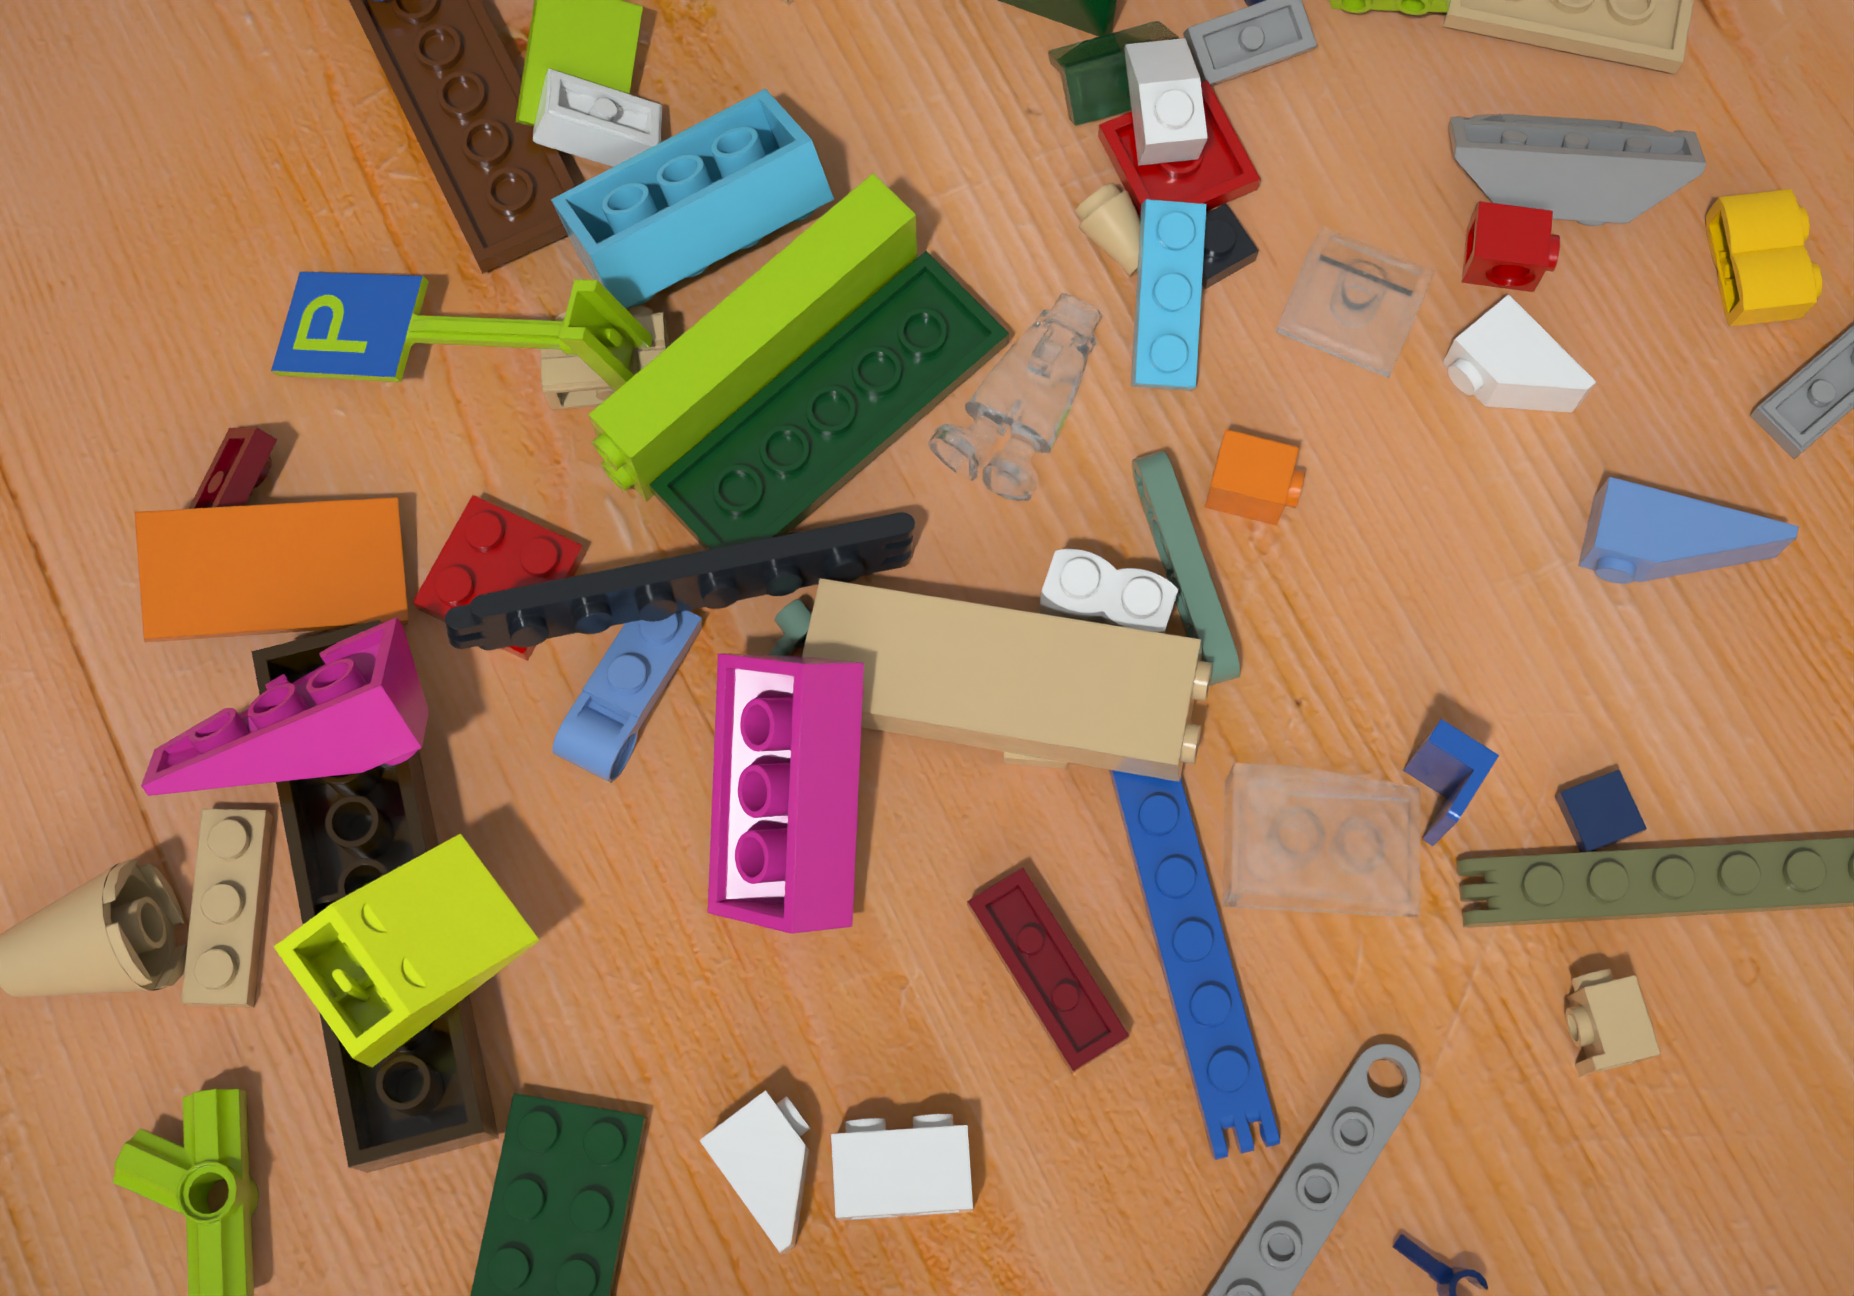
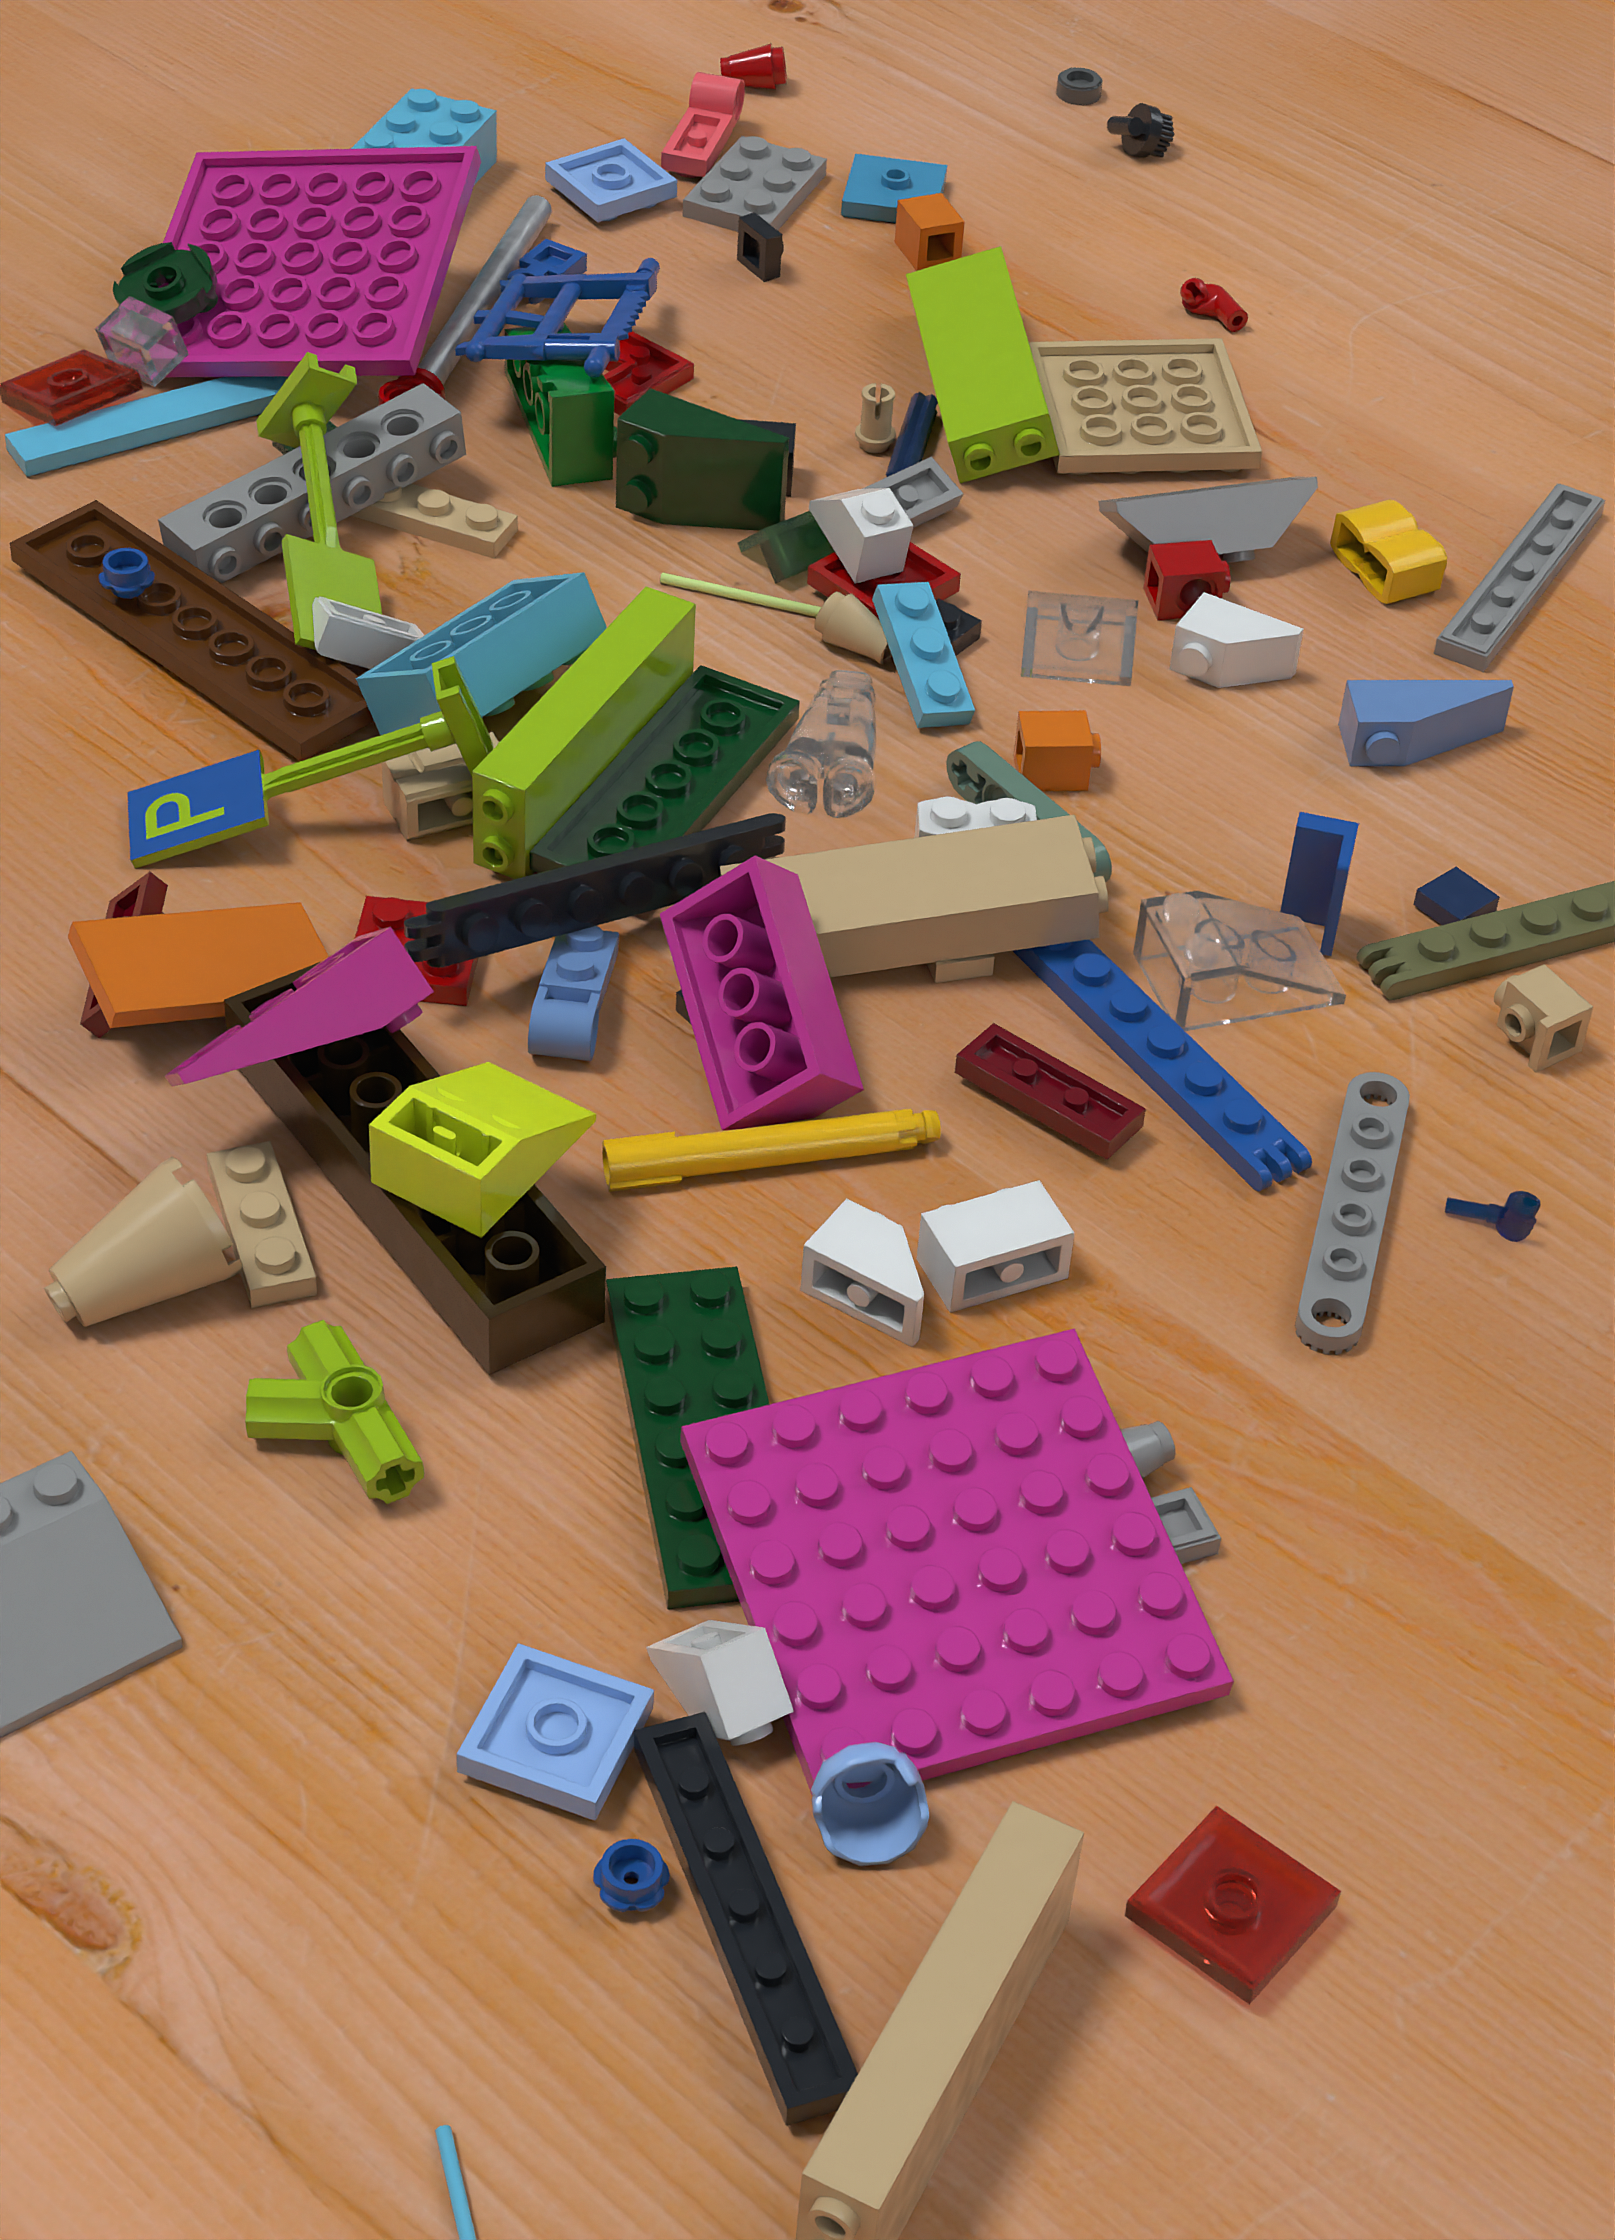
camera: 25 degrees left, 30 degrees down
(635, 945) = (666, 1158): none -> yellow piece
(1027, 134) = (739, 594): none -> yellowish green axle

